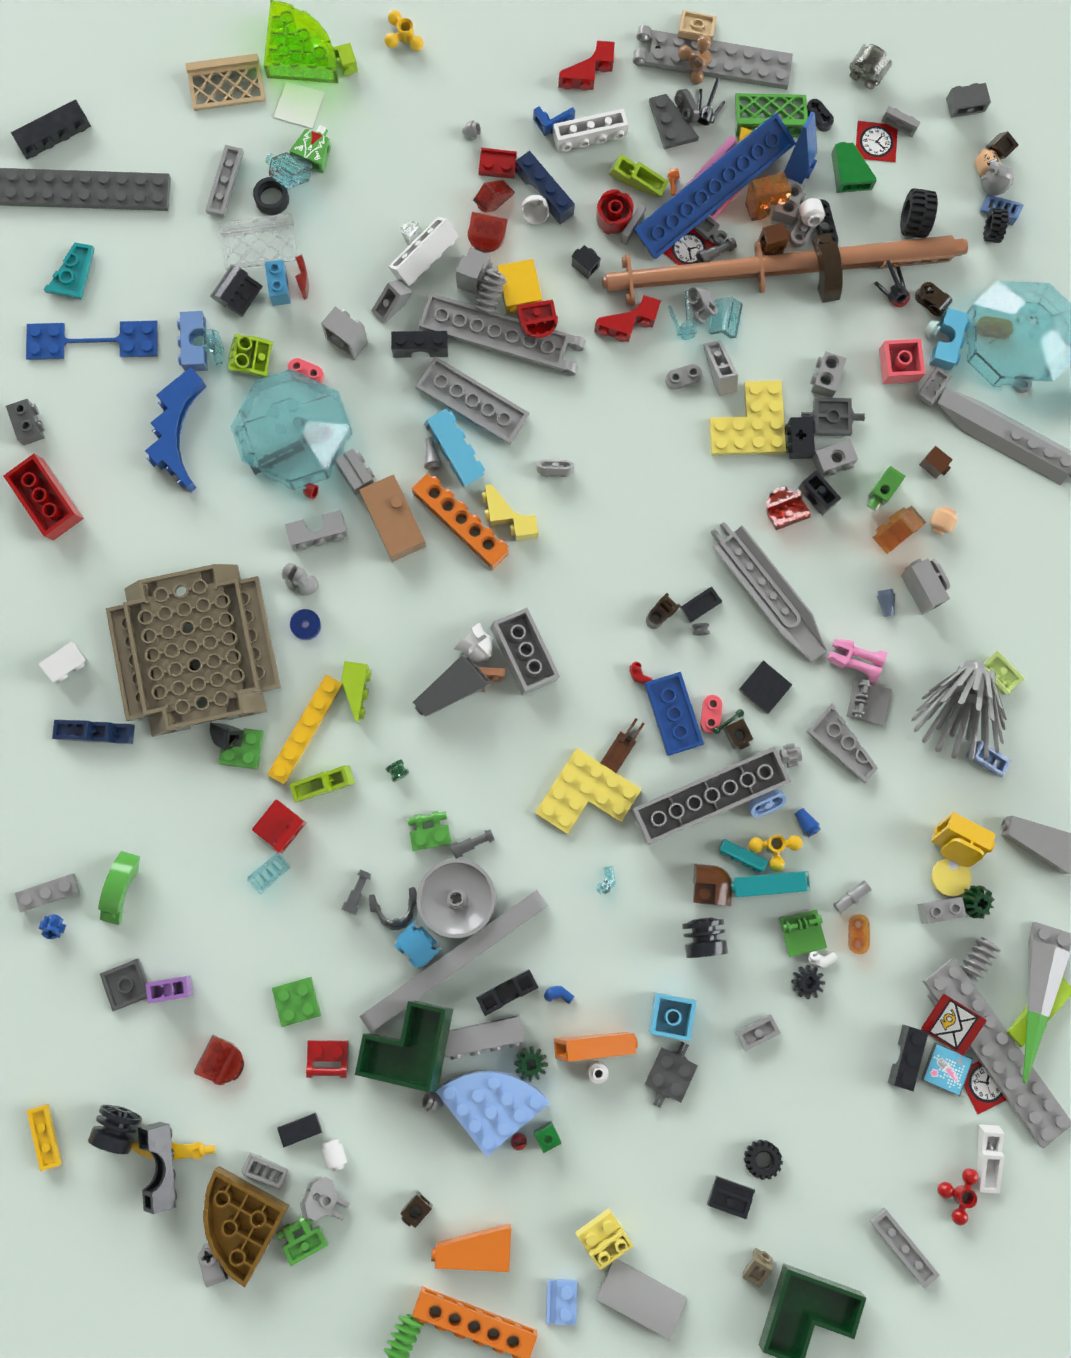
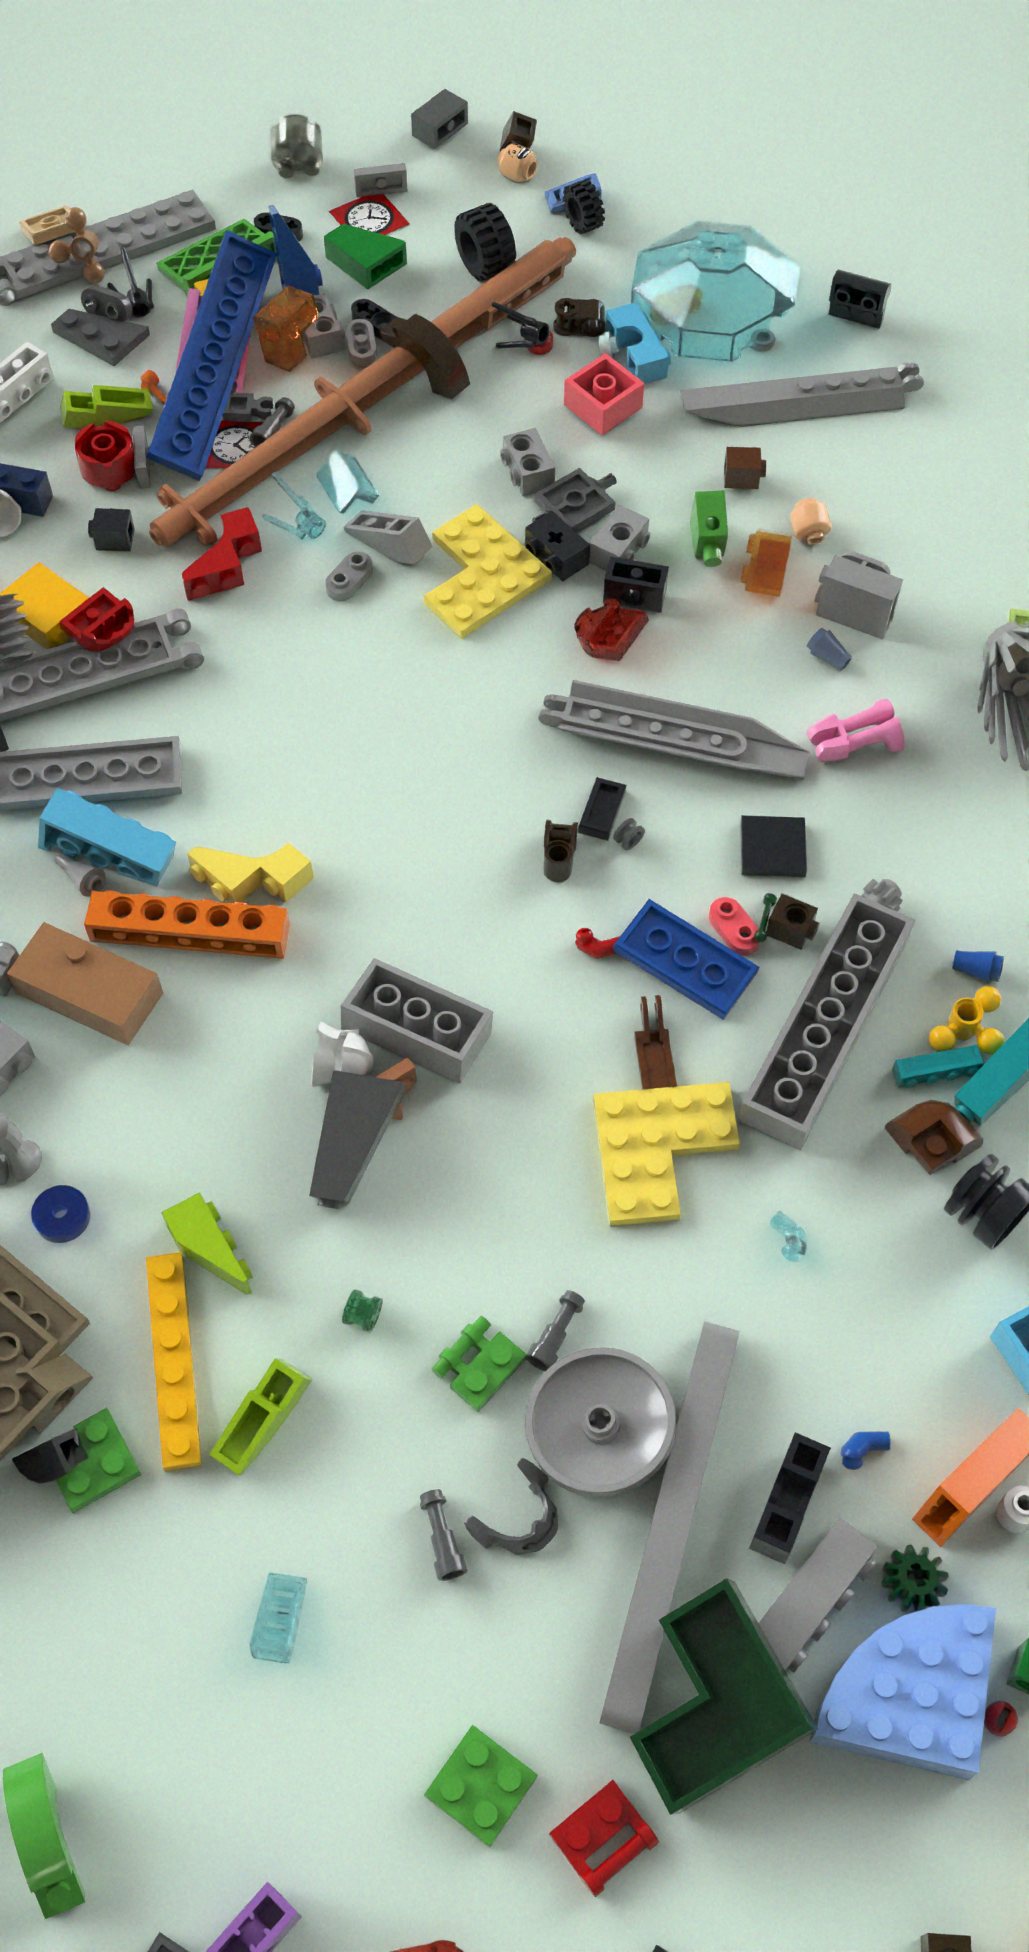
camera: 30 degrees left, 20 degrees down
(279, 826) = (241, 1529): red bracket -> none
(417, 945) = (599, 1533): dark azure brick -> none
(432, 1101) = (820, 1765): light grey plate -> none
(555, 467) = (258, 783): light grey plate -> none
(701, 304) = (307, 484): light grey piece -> none
(767, 803) = (907, 978): light blue plate -> none
(774, 239) = (335, 359): reddish brown brick -> none
(811, 212) = (356, 312): white head -> none
(840, 742) = (917, 841): light grey wing -> none
(869, 702) = (916, 773): light grey hinge -> none
(933, 386) = (664, 400): light grey plate -> none
(997, 179) = (543, 166): light grey cap -> none

